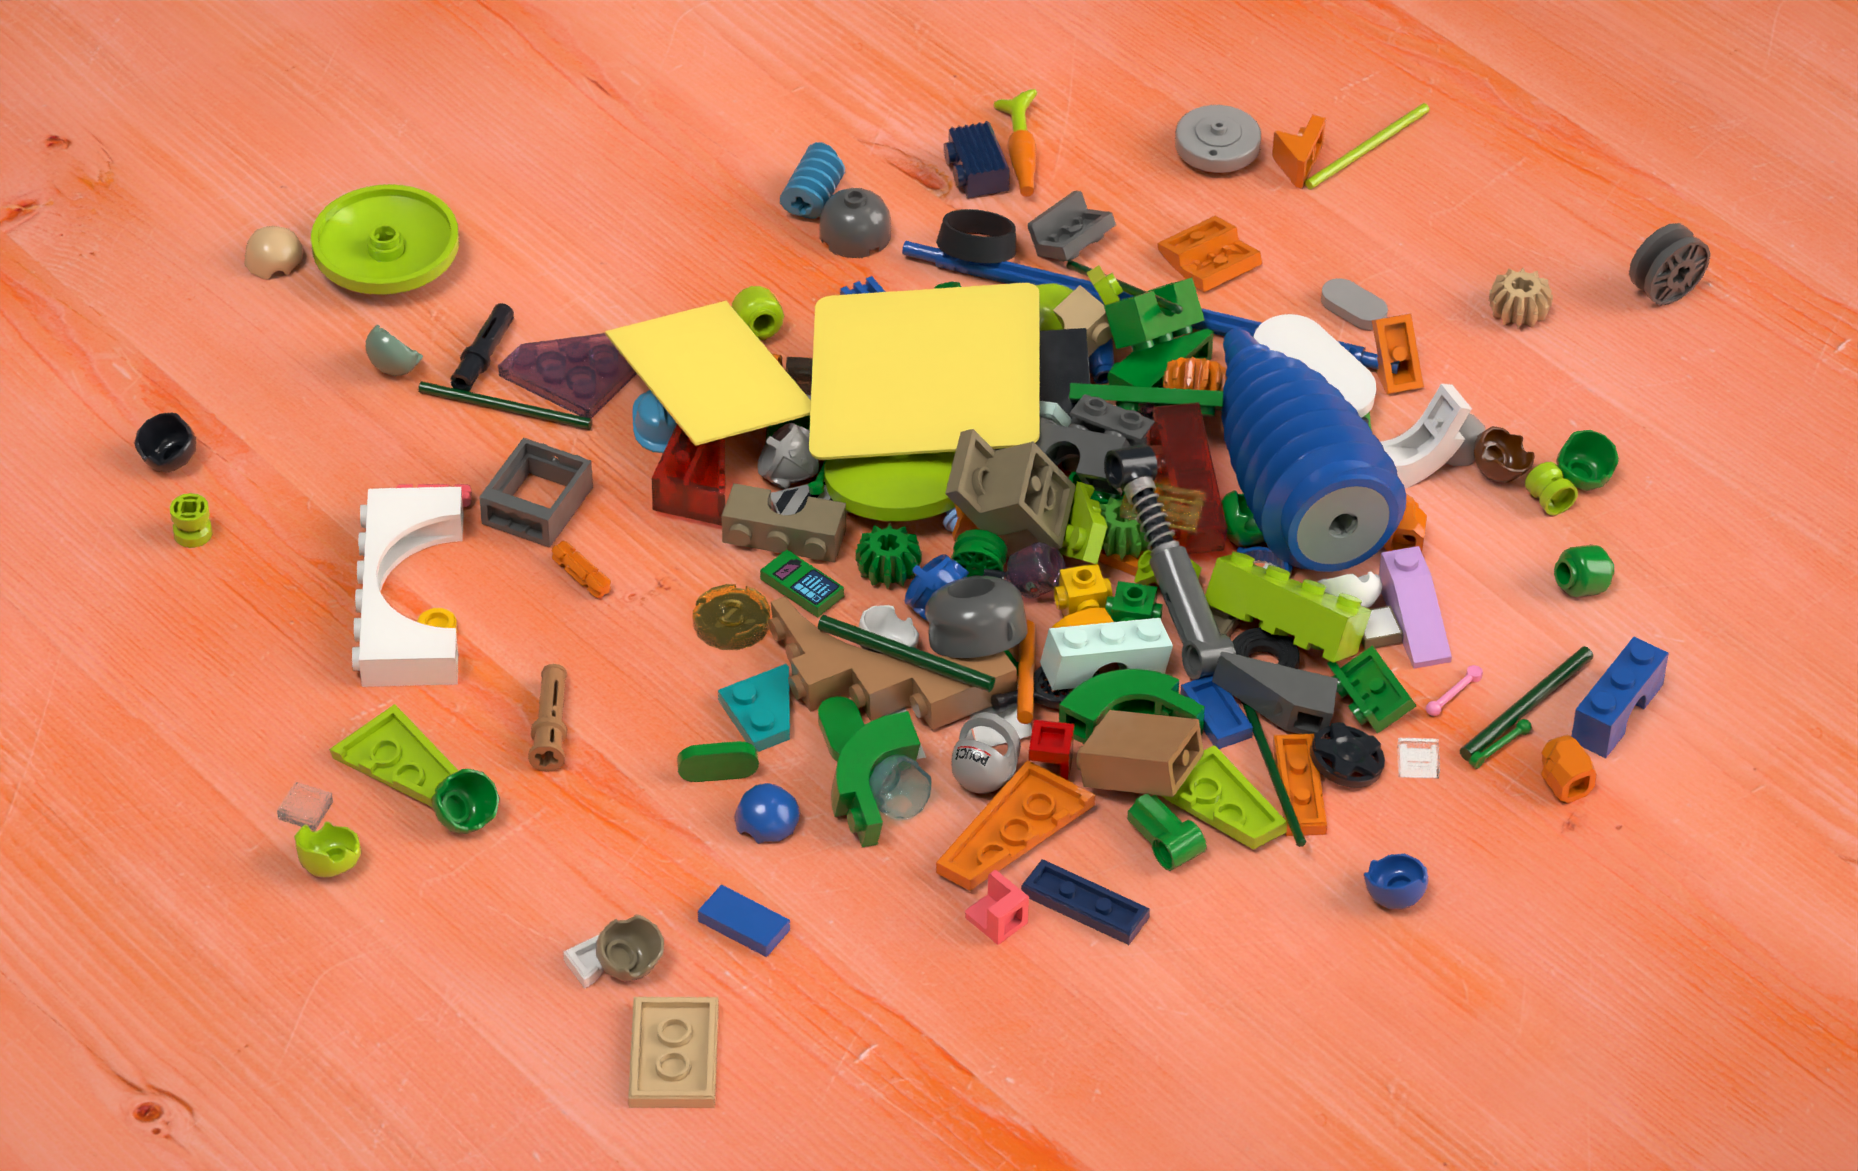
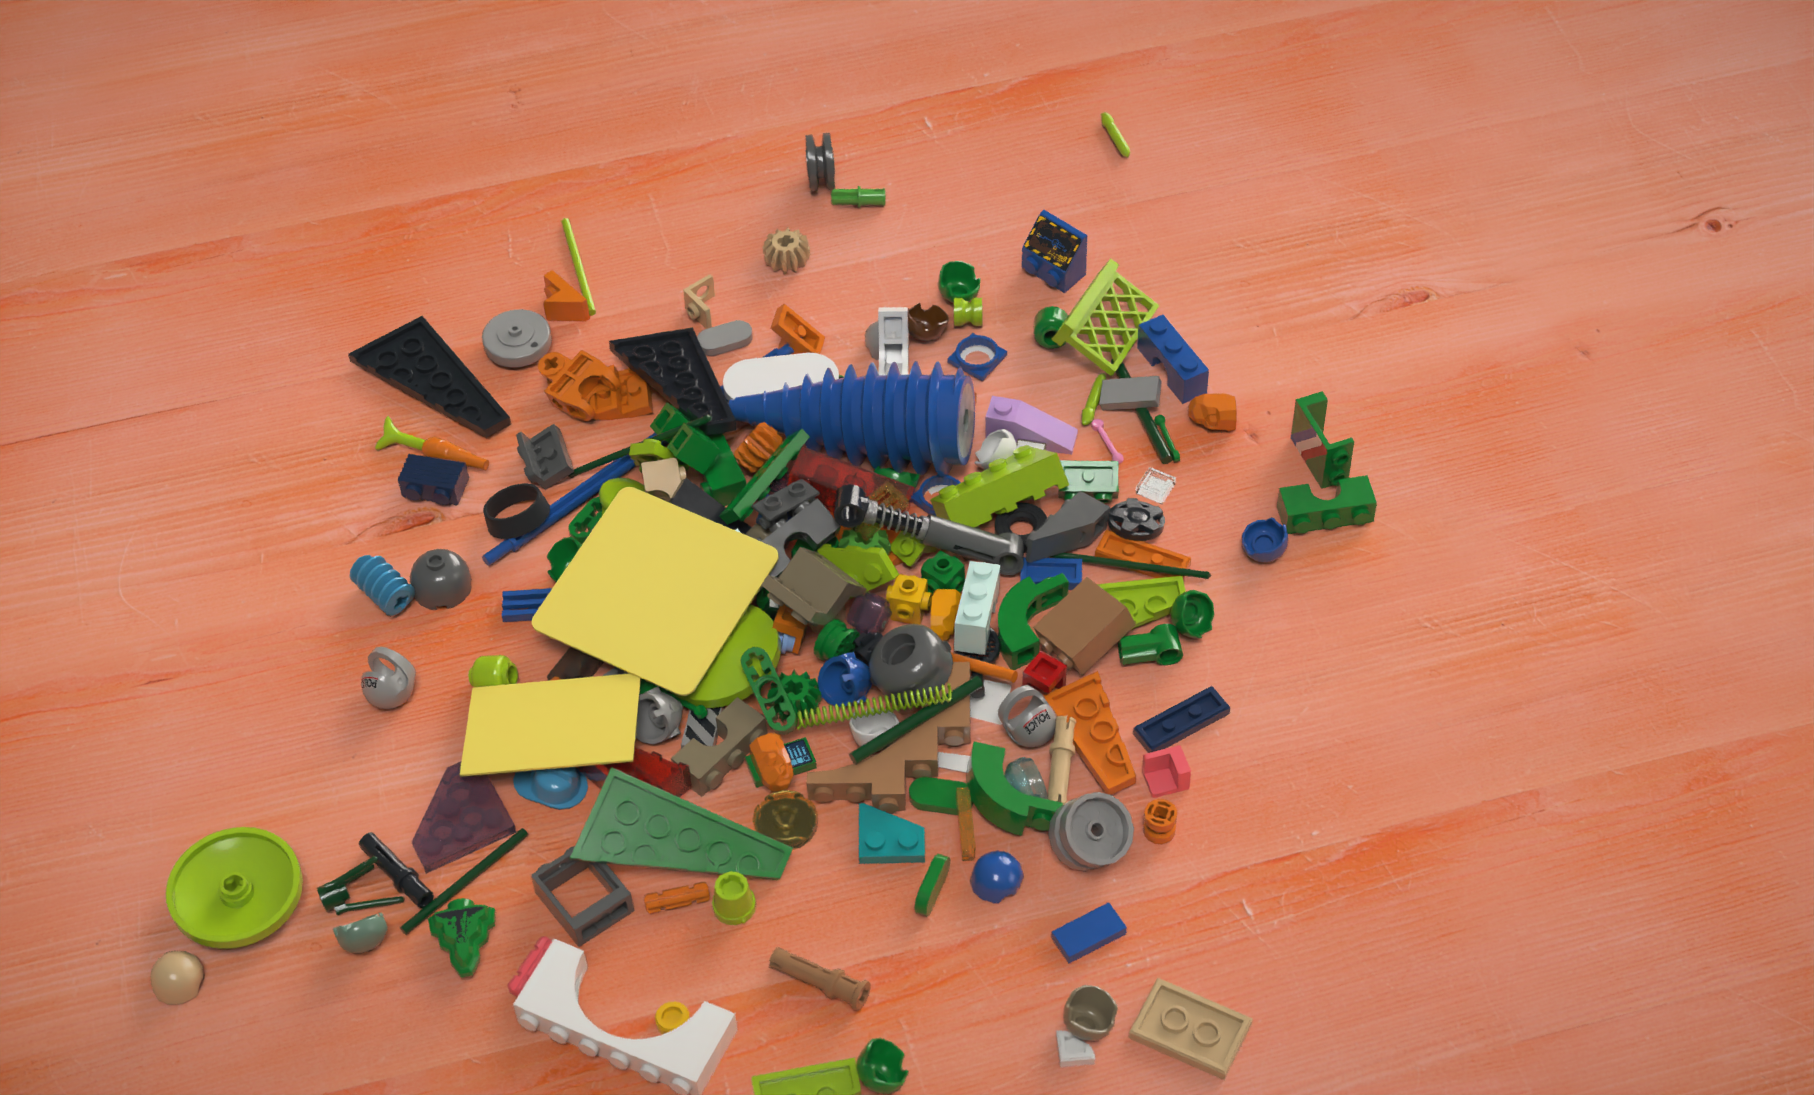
camera: 60 degrees left, 5 degrees up
(429, 316) = (336, 893): none -> dark green plant
(438, 427) = (462, 932): none -> green rock
(602, 609) = (733, 899): none -> lime piece
(632, 508) = (658, 830): none -> green wing
(691, 245) = (384, 686): none -> light grey helmet
(786, 566) = (771, 761): none -> orange rock
(807, 754) = (965, 824): none -> clear yellow tile
(831, 862) = (1091, 831): none -> light grey wheel
(879, 497) = (752, 674): none -> green beam
(894, 615) = (875, 709): none -> lime piece
(923, 924) = (1160, 821): none -> orange wheel
(957, 801) = (1062, 751): none -> tan pin
(1120, 96) = (429, 370): none -> black wing
(1184, 206) = (575, 382): none -> orange piece
(1233, 849) = (1192, 613): none -> green hair
(1253, 279) = (680, 373): none -> black wing
(1382, 253) = (695, 305): none -> tan bracket
(1483, 657) = (1092, 402): none -> lime piece
(1495, 510) = (977, 343): none -> blue piece
(1515, 946) = (1304, 512): none -> green arch
(1535, 678) = (1130, 393): none -> light grey tile
(1596, 850) = (1325, 460): none -> green panel
(1623, 576) = (1085, 310): none -> lime fence
(1659, 327) = (858, 196): none -> bright green axle
(1695, 526) = (1055, 252): none -> slope

